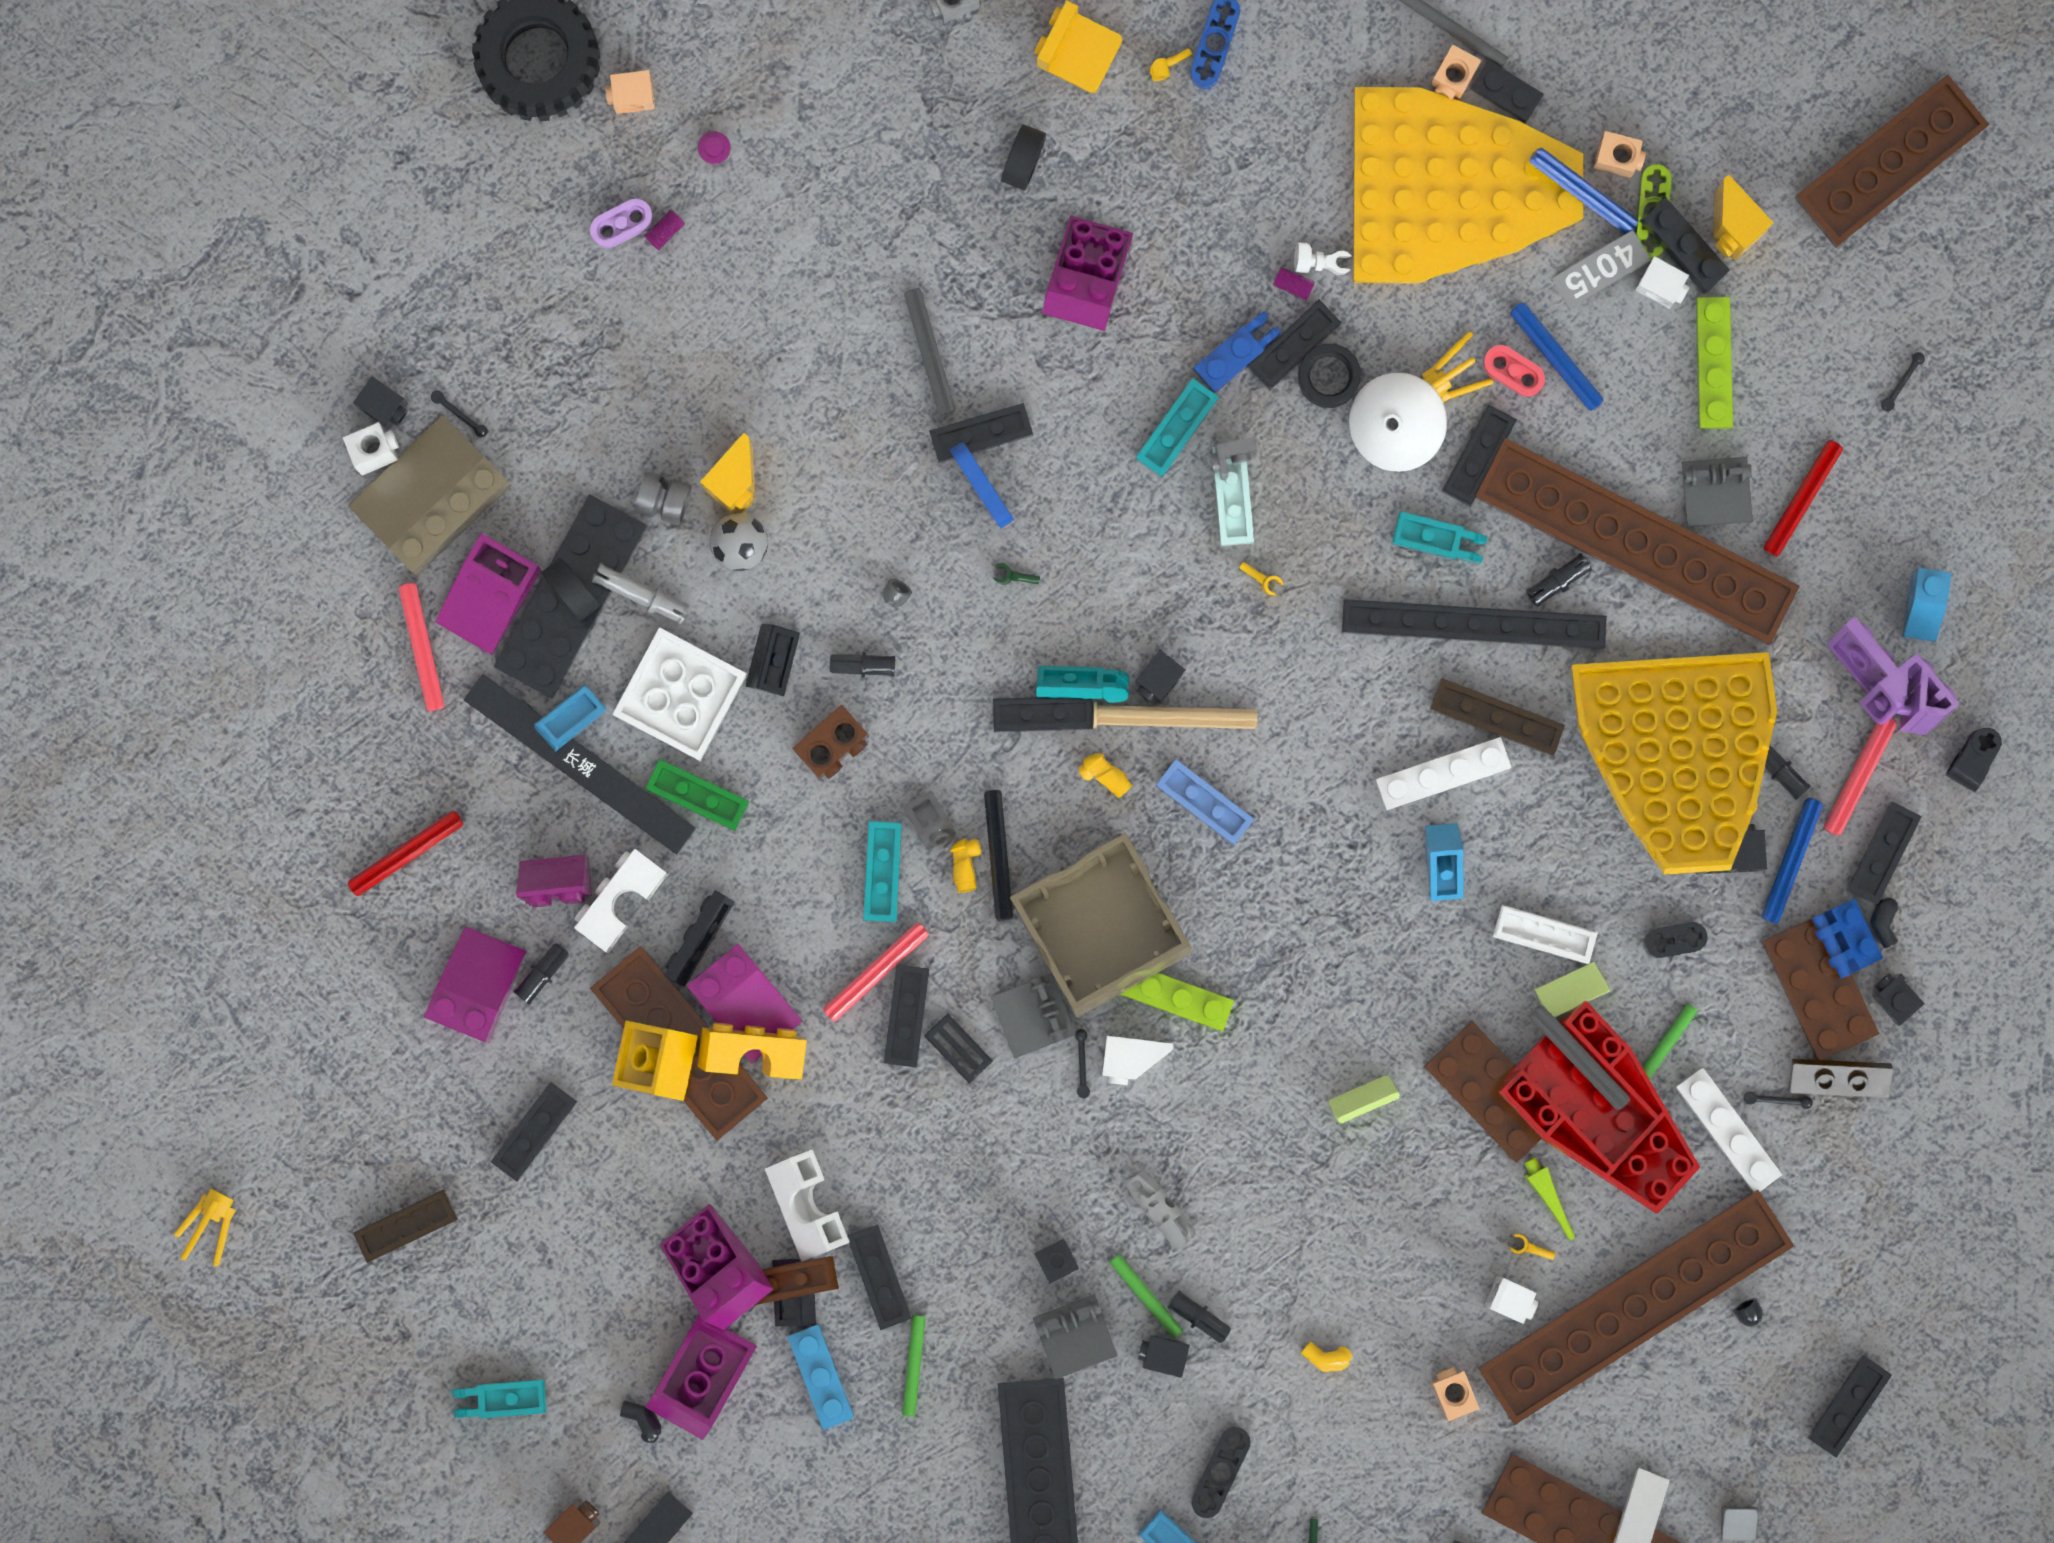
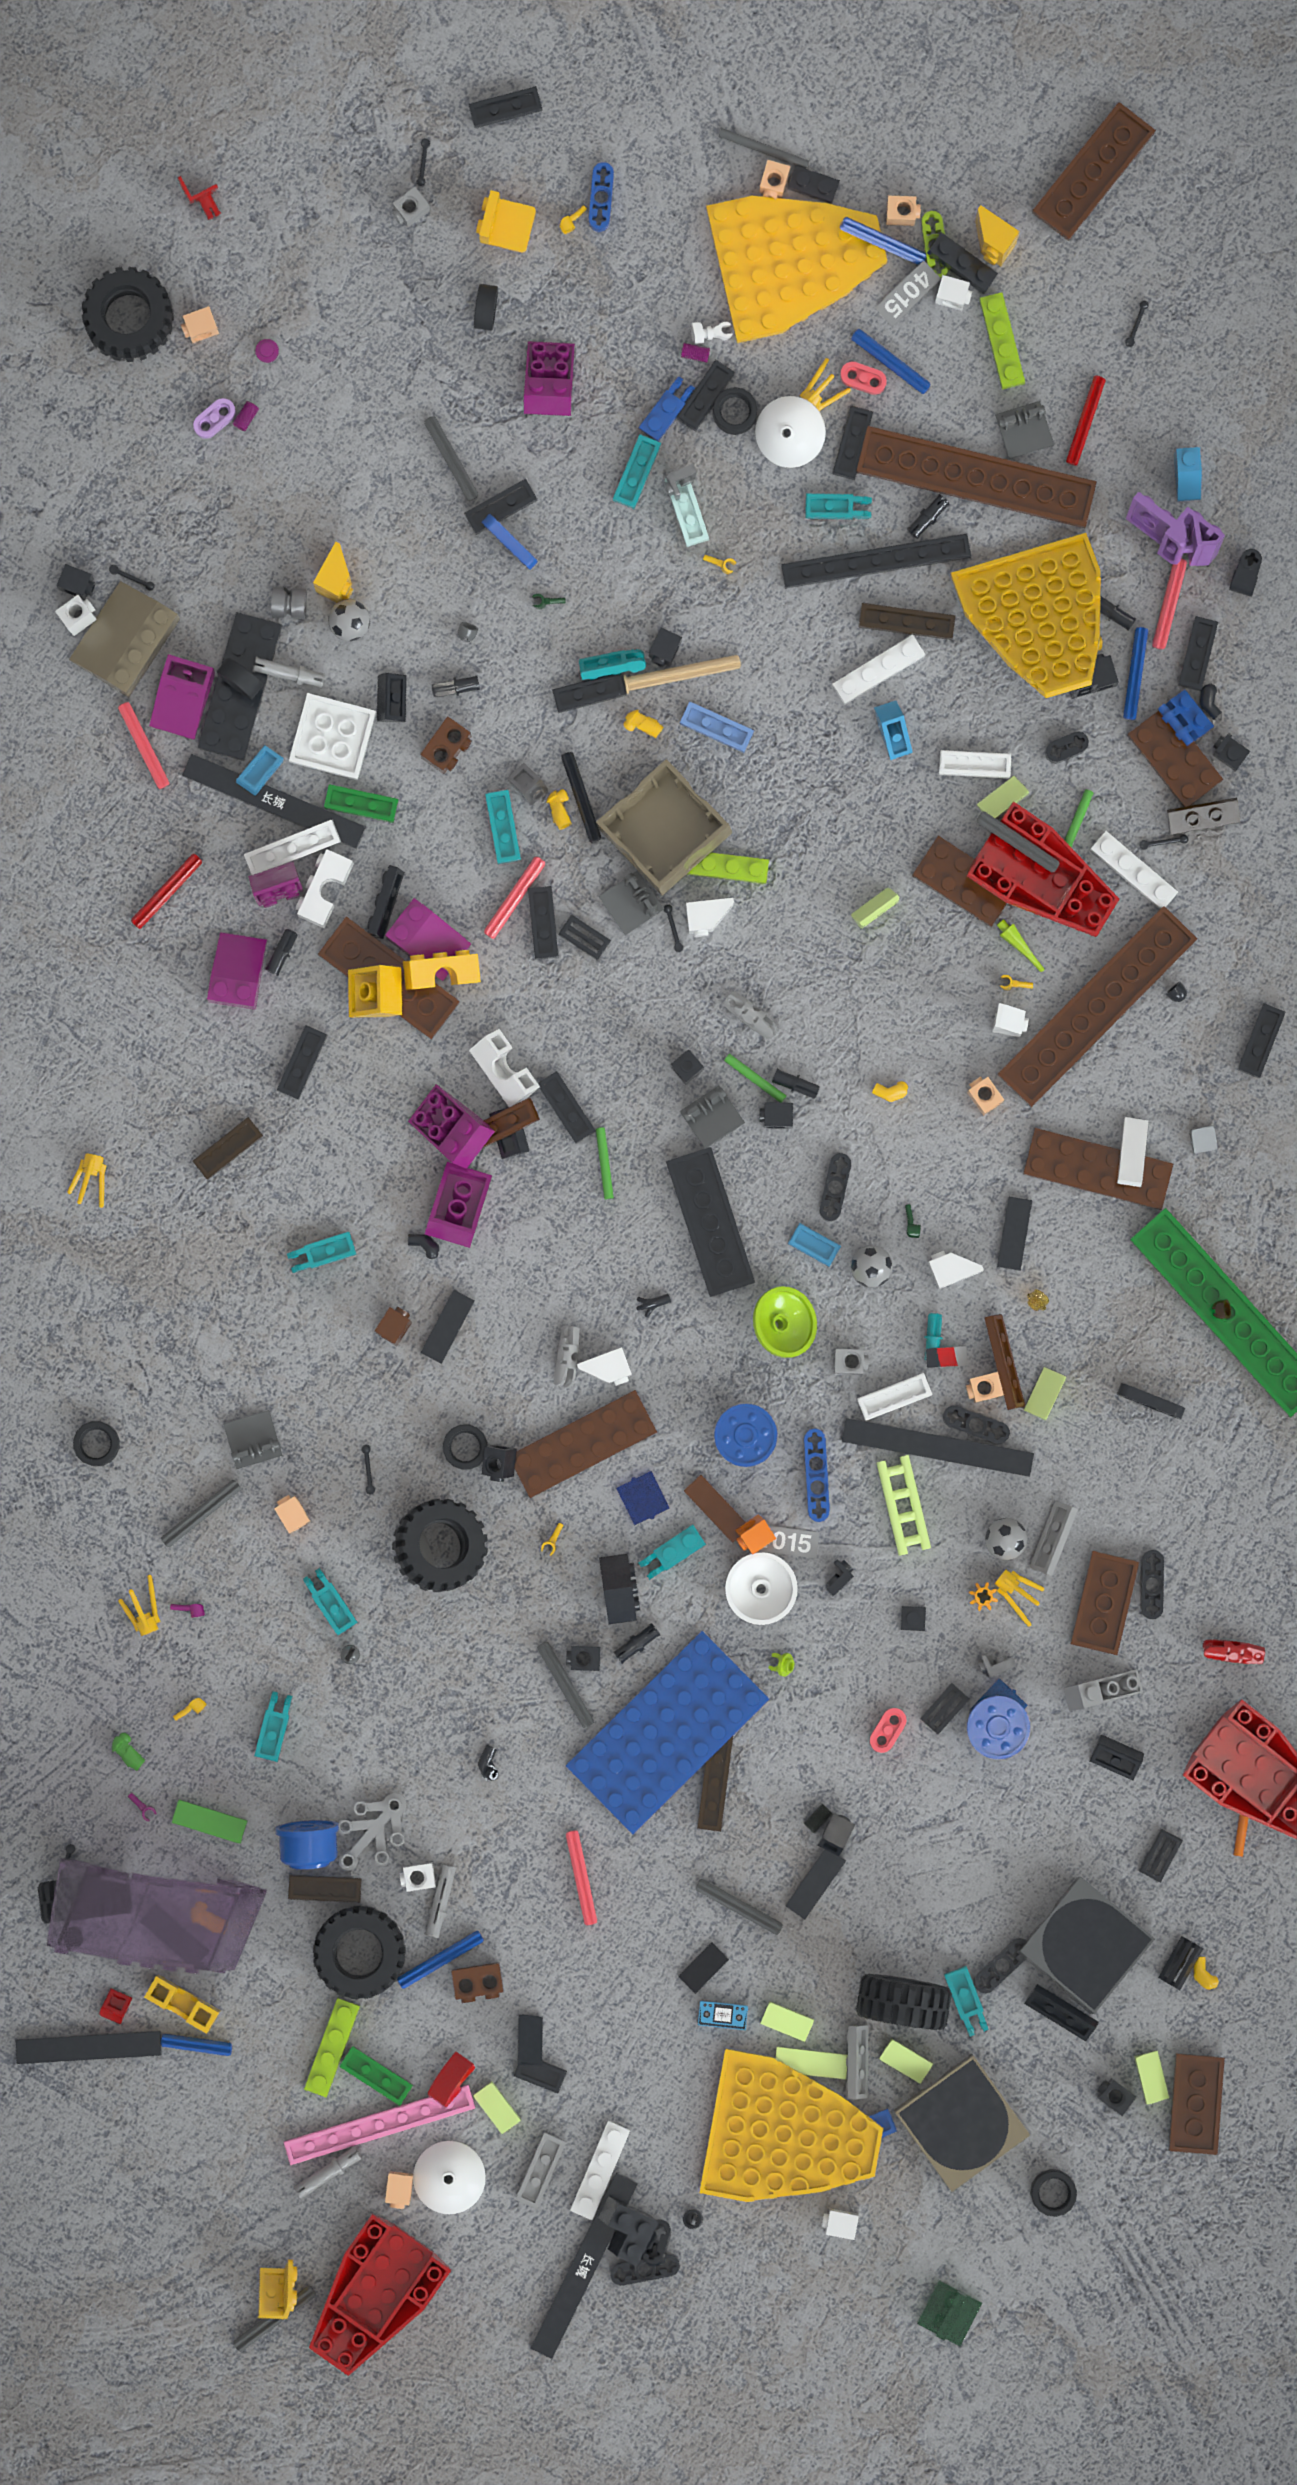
camera: 10 degrees left, 0 degrees up
(589, 835) = (292, 847): none -> white plate
(820, 1377) = (541, 1186): dark azure plate -> none

